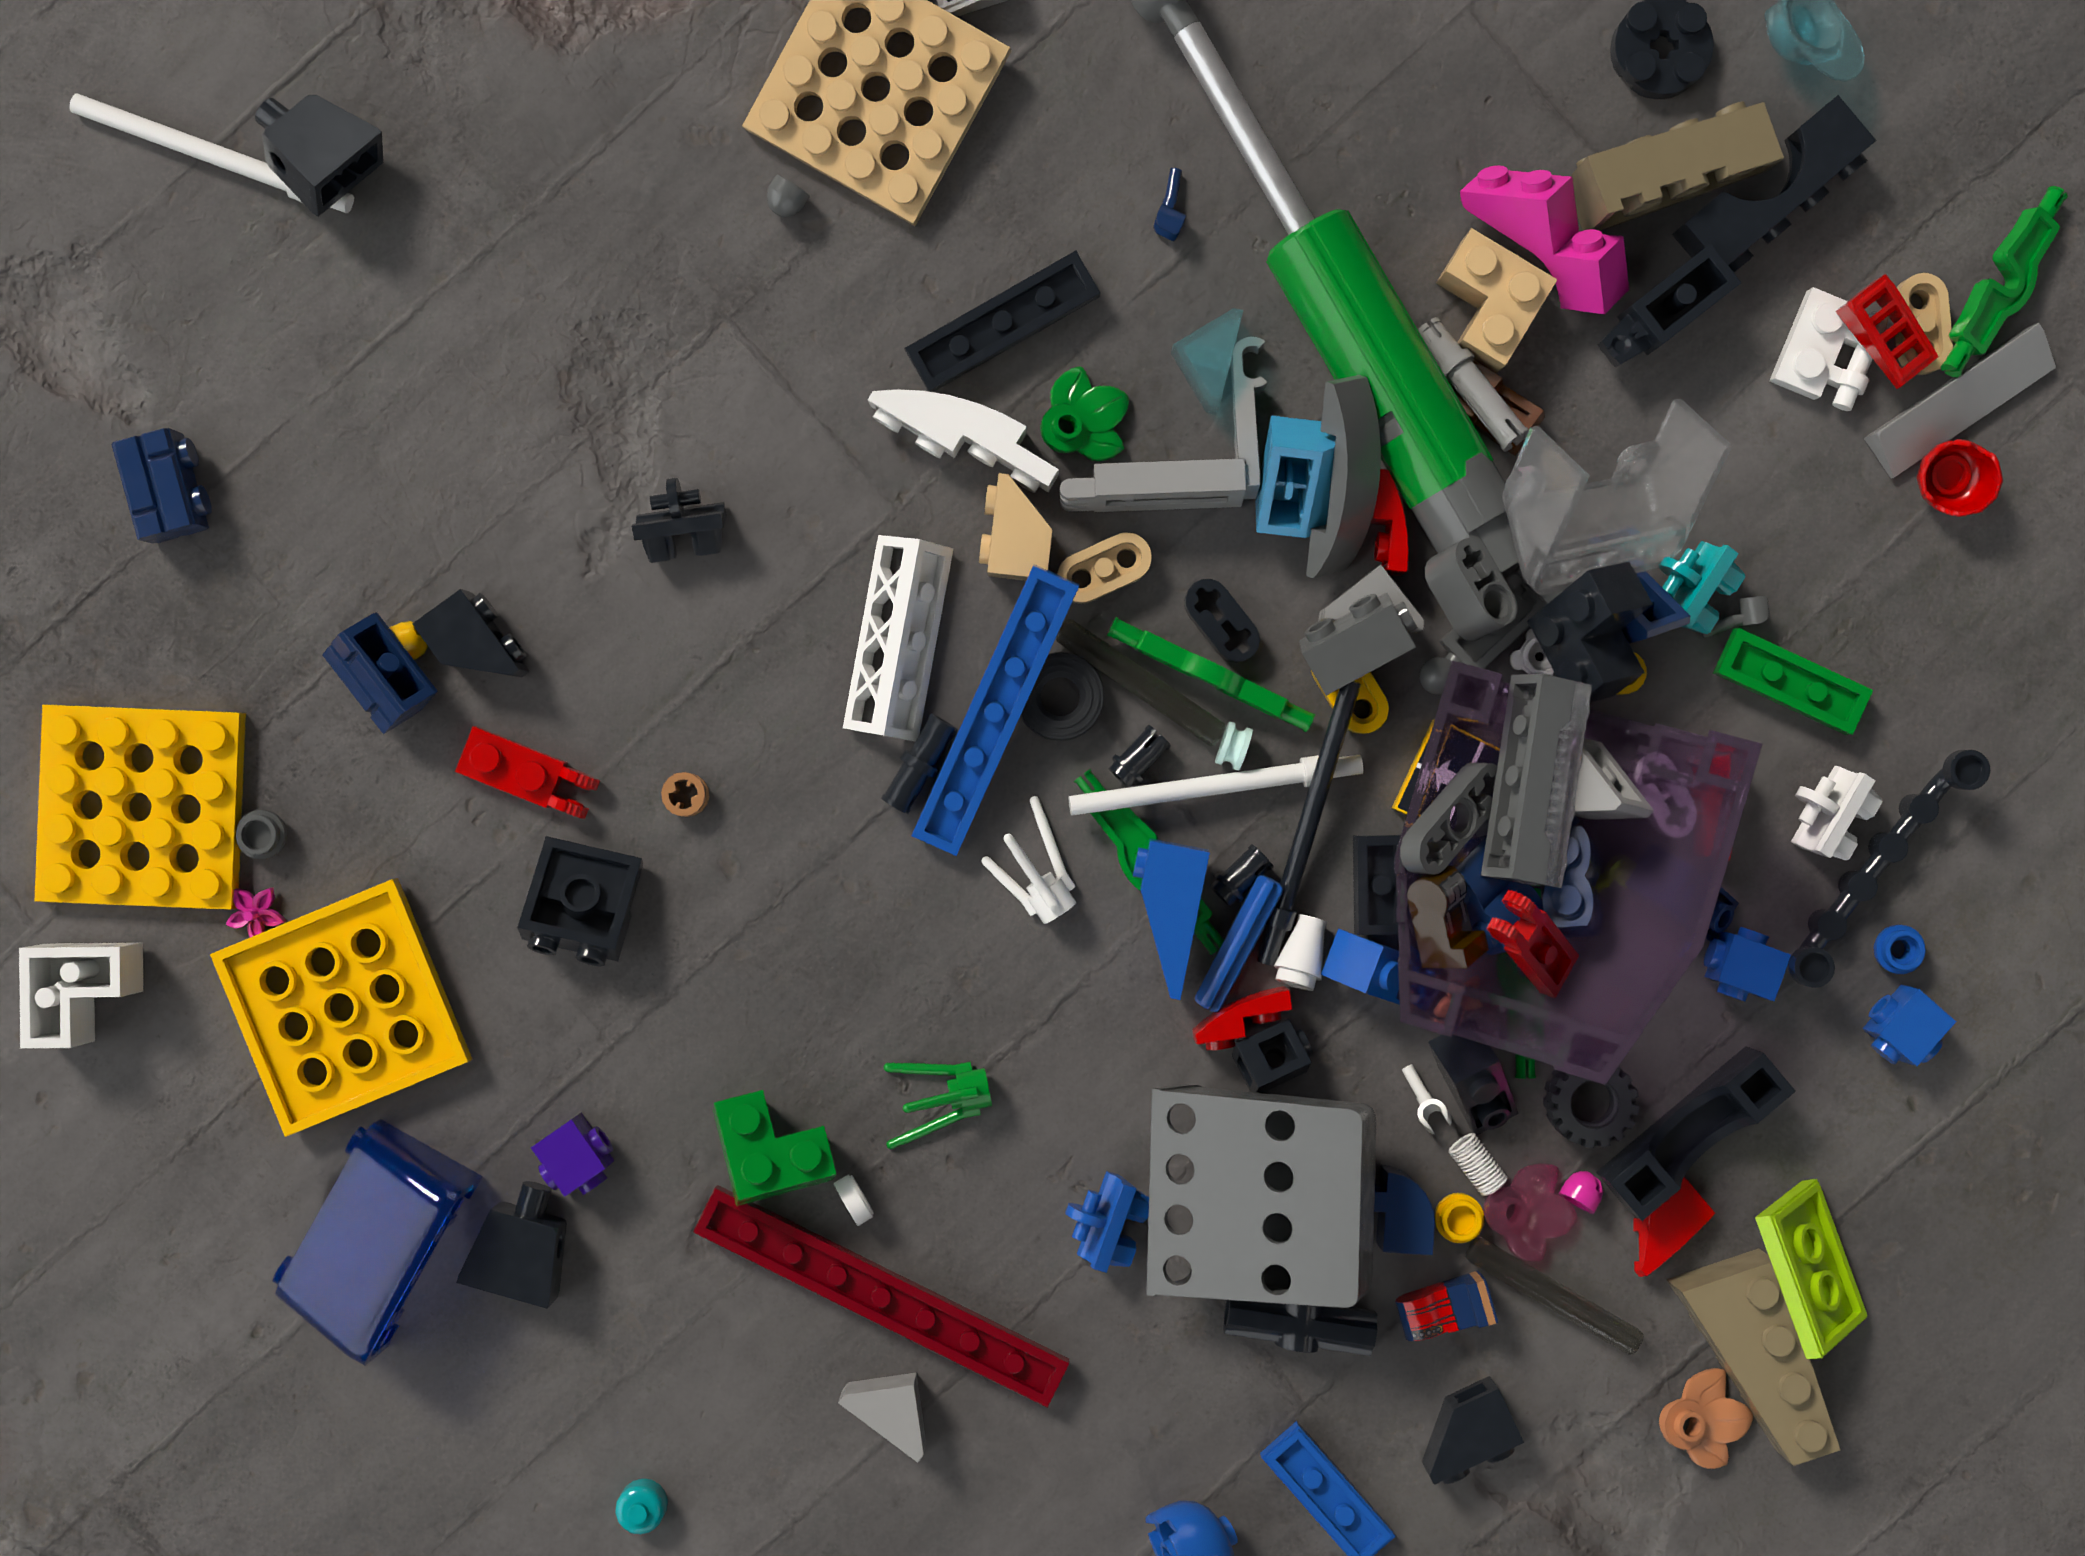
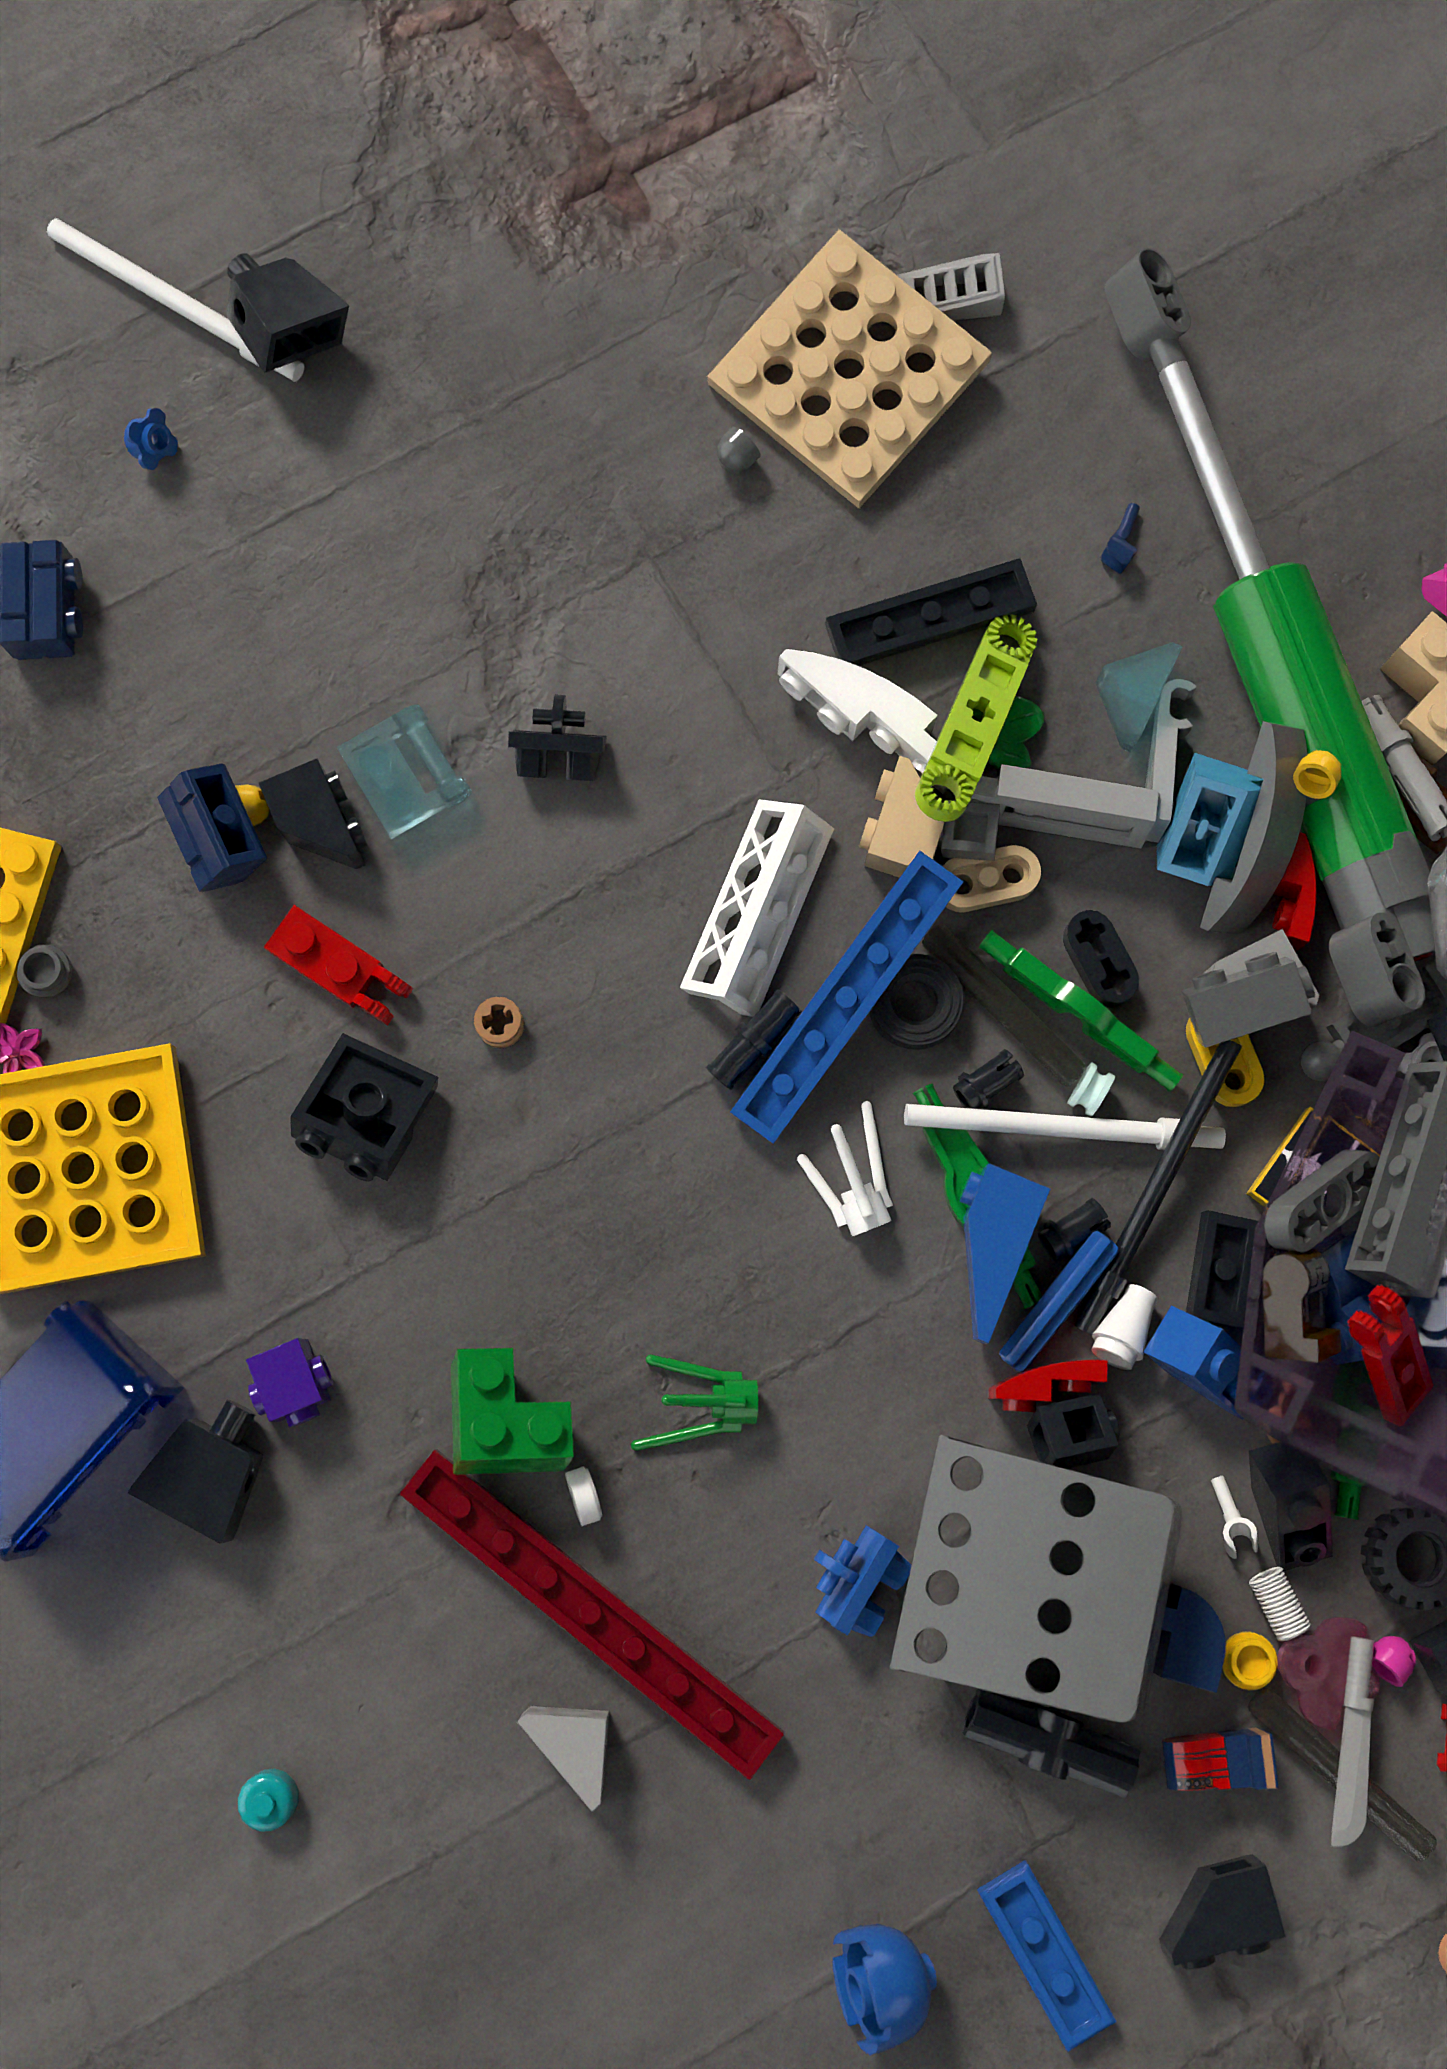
camera: 10 degrees right, 10 degrees down
(214, 305) = (139, 439): none -> blue plate
(528, 586) = (390, 781): none -> clear light blue plate
(1057, 450) = (967, 743): none -> lime piece
(1078, 529) = (972, 833): none -> dark grey tile
(1385, 420) = (1317, 774): none -> yellow hinge
(1560, 1271) = (1353, 1770): none -> light grey piece

